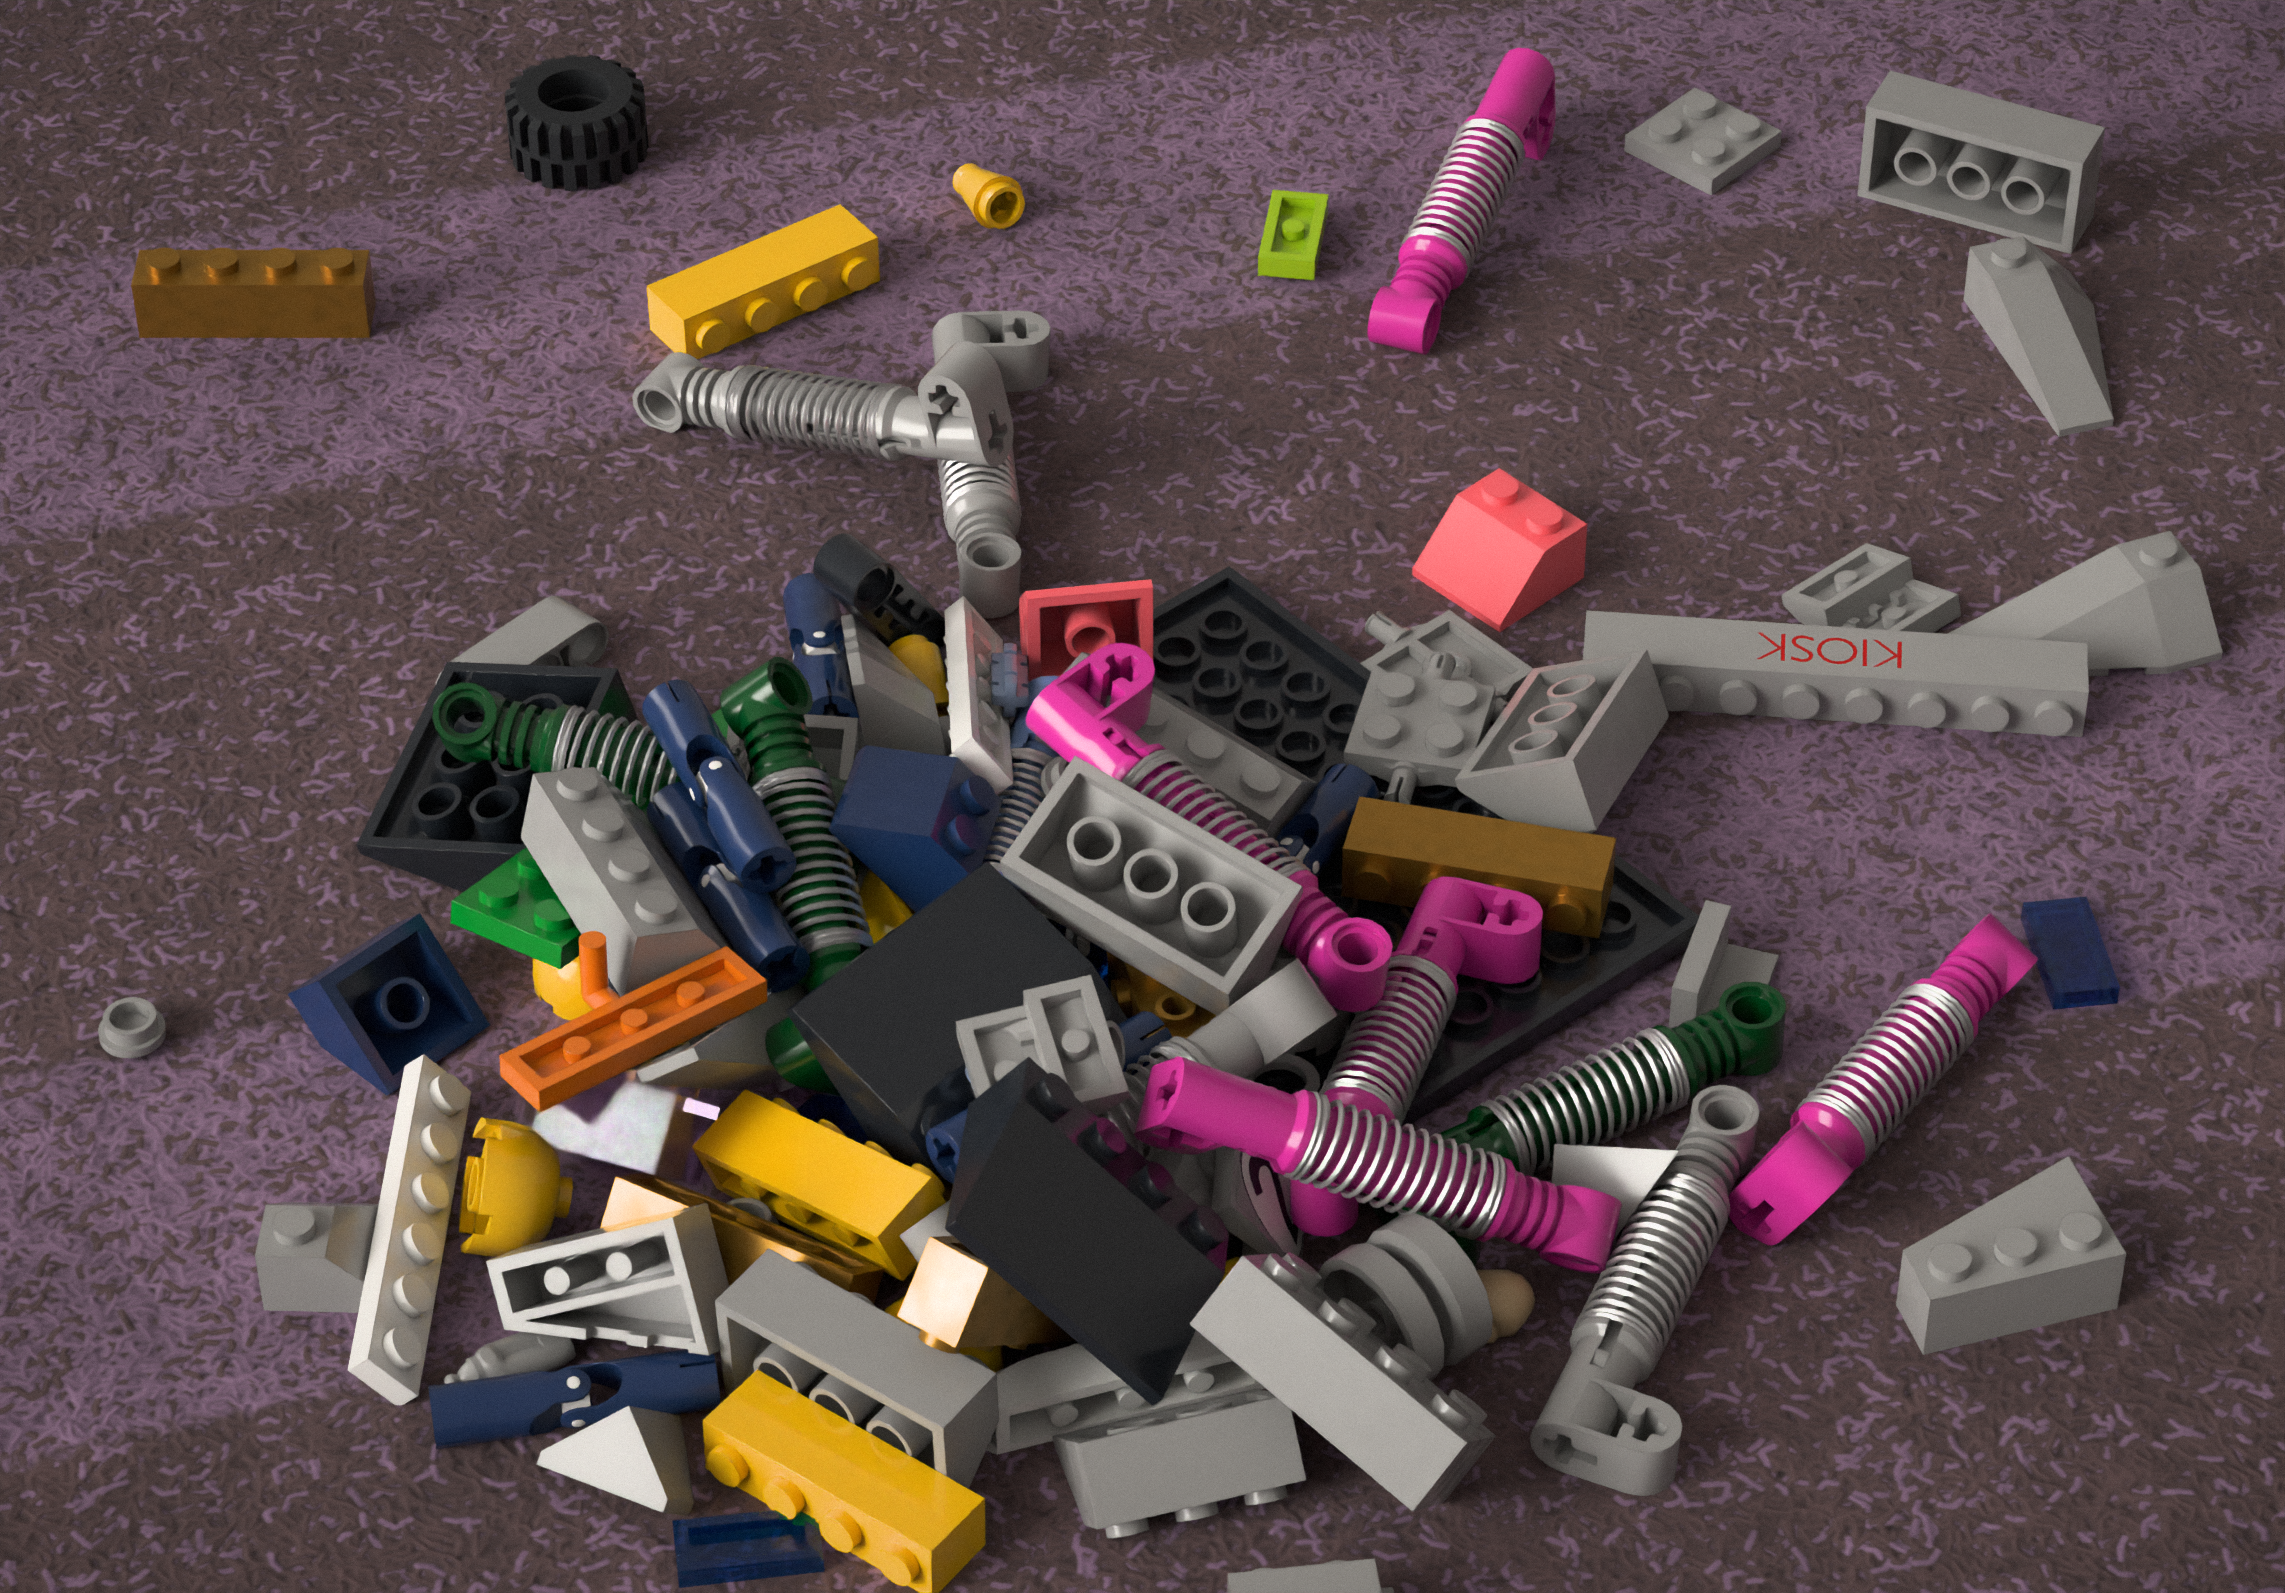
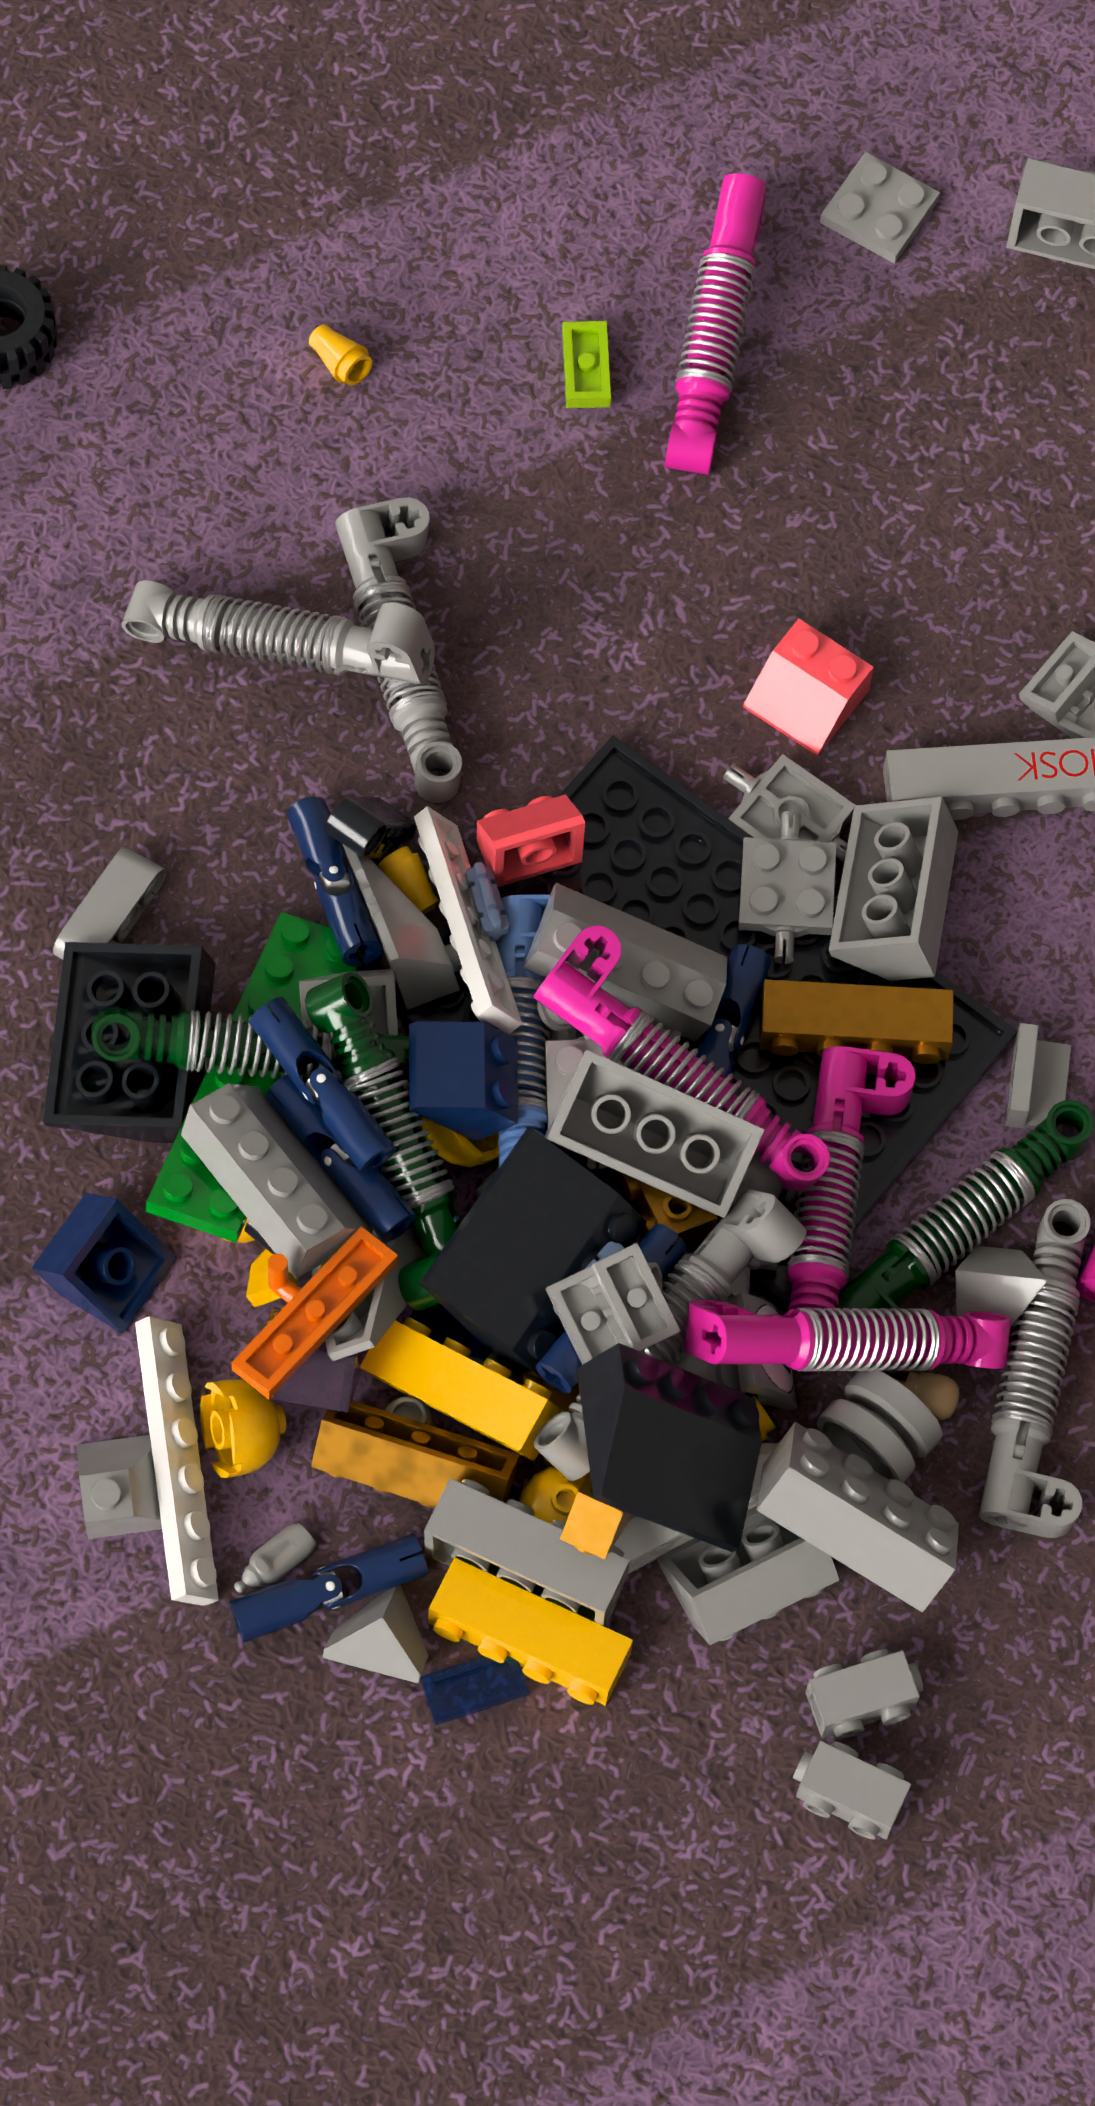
camera: 15 degrees left, 25 degrees up
(619, 1282) = (343, 1499): light grey wedge -> none
(764, 283) = (192, 483): yellow brick -> none

